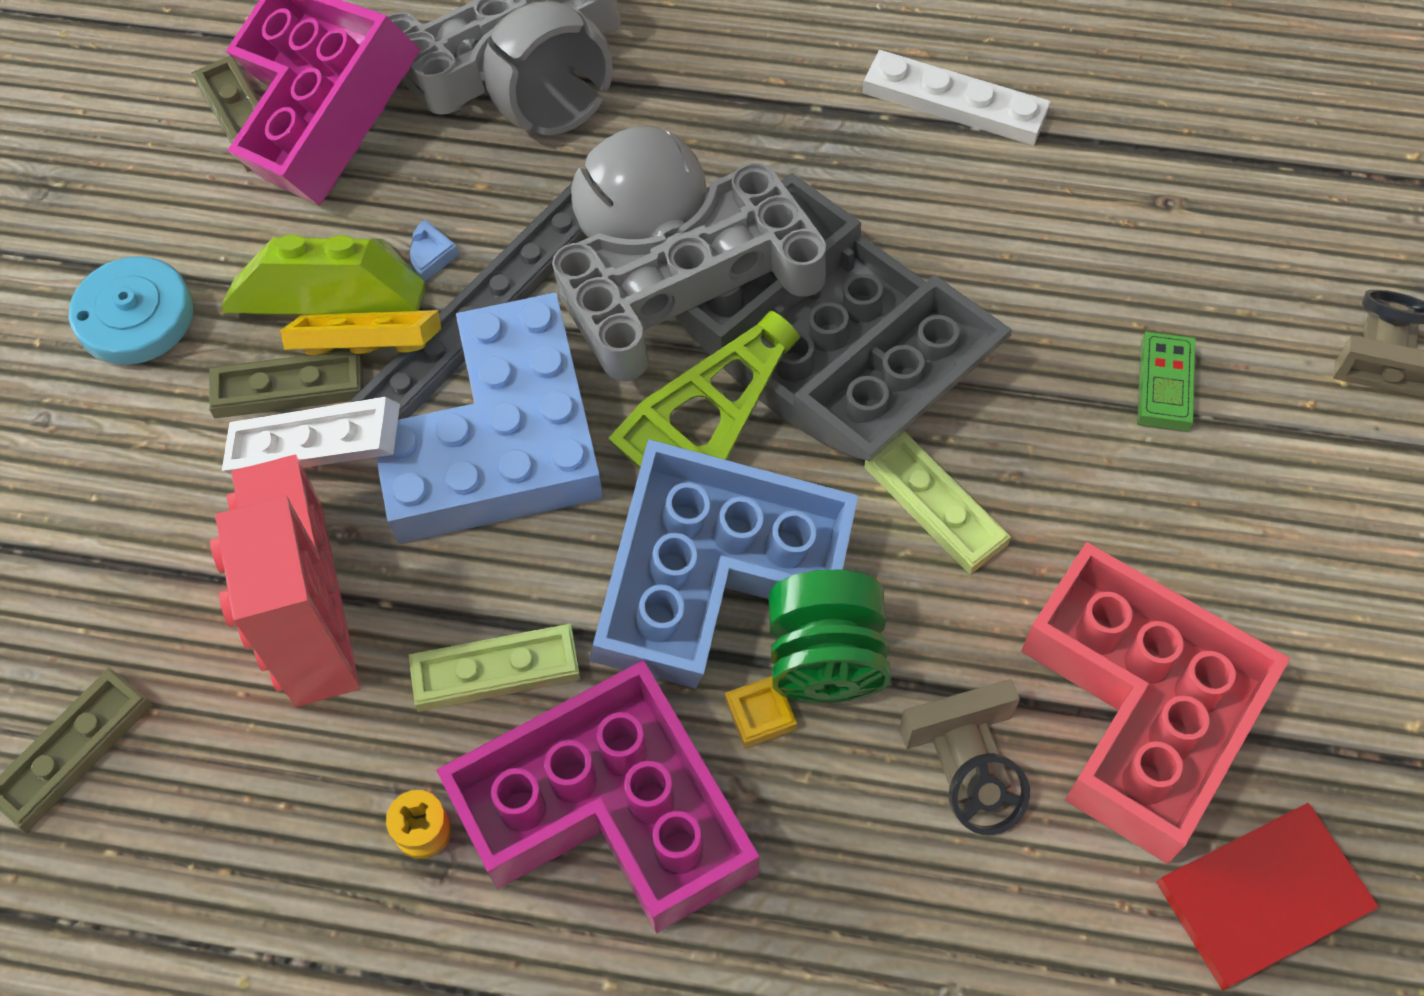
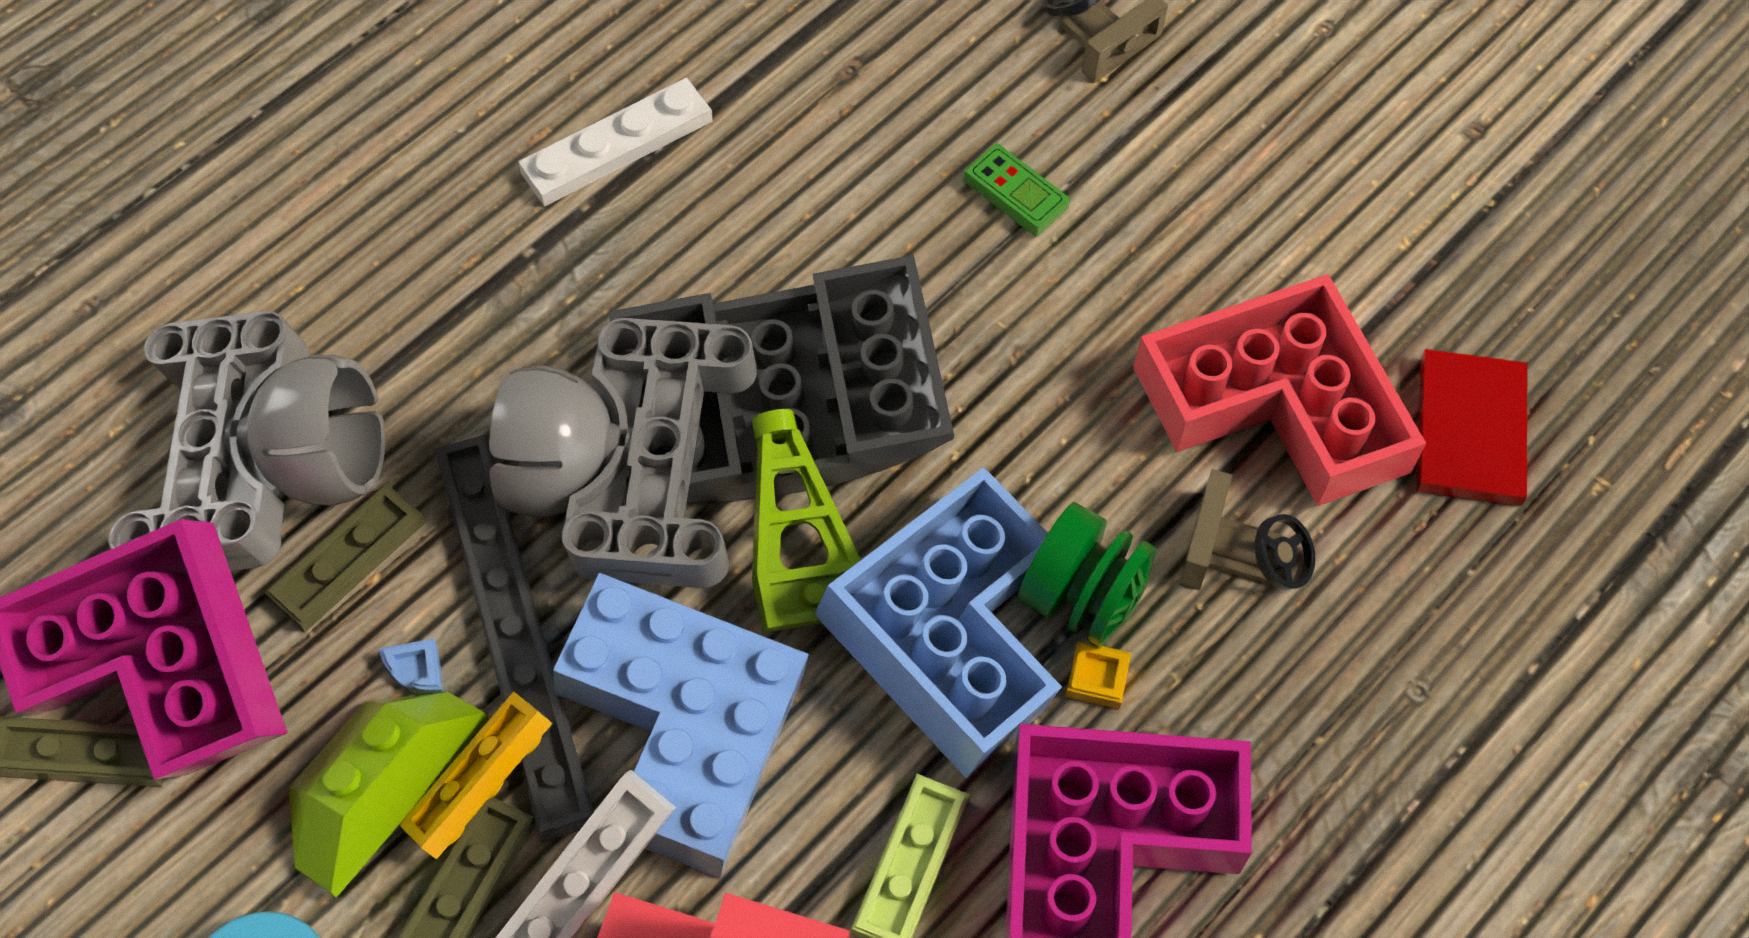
camera: 60 degrees left, 0 degrees up
(483, 158) = (345, 557): none -> olive tile
(938, 503) = (1013, 422): yellowish green tile -> none

